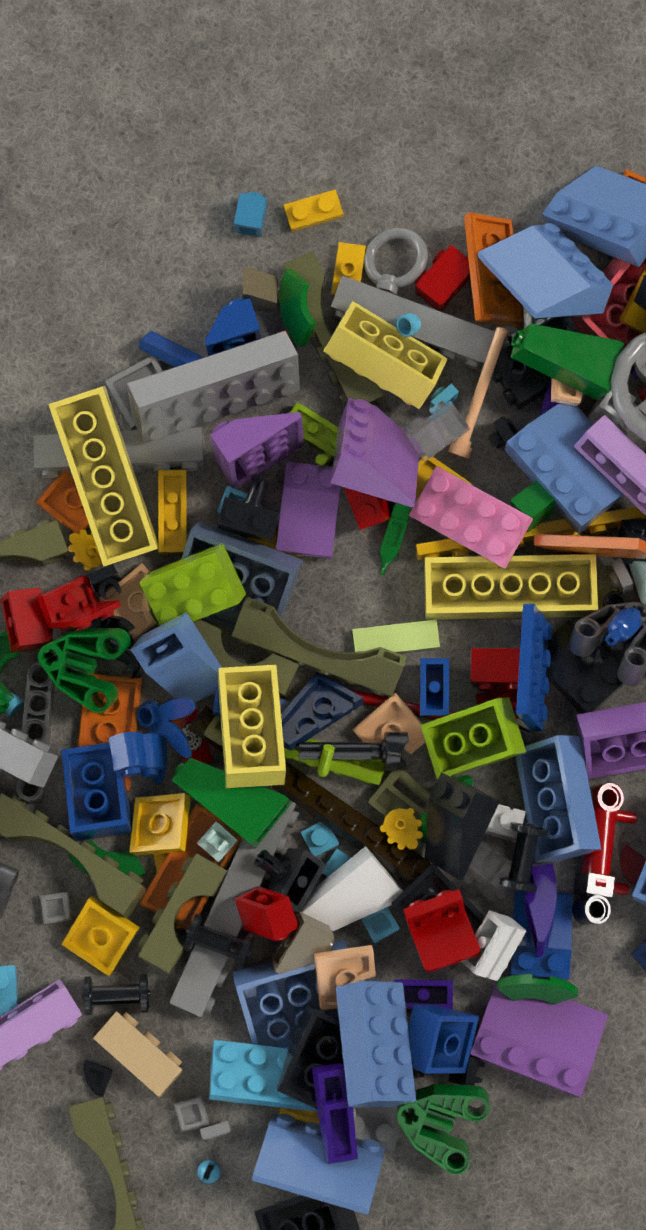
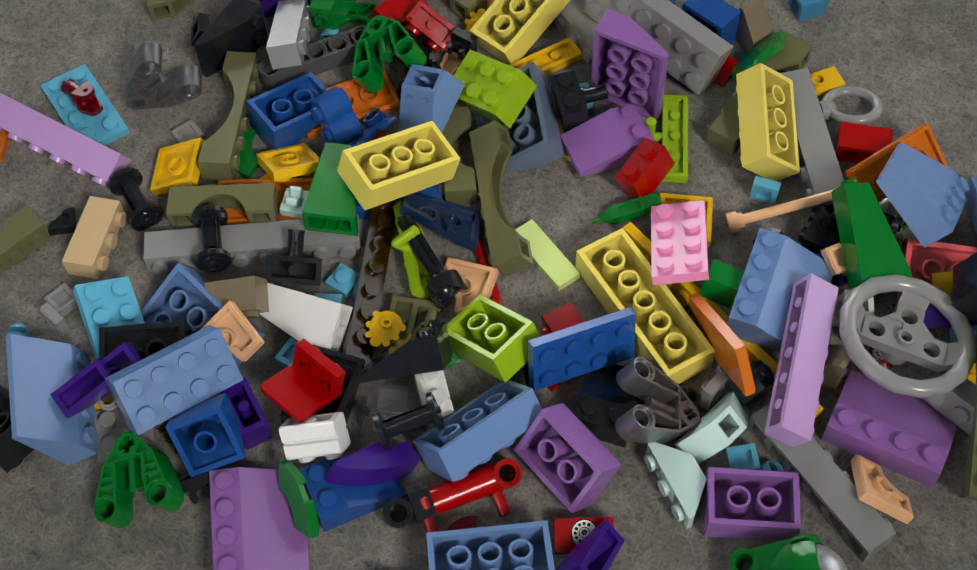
camera: 60 degrees right, 20 degrees down
(266, 913) = (249, 254): red brick -> none
(313, 210) = (845, 41): yellow plate -> none
(374, 455) = (679, 145): medium lavender slope -> none
(408, 324) = (804, 125): medium azure hinge -> none
(434, 686) = (521, 291): blue slope -> none
(436, 430) = (733, 187): clear brick -> none
(623, 625) = (665, 396): blue plant -> none

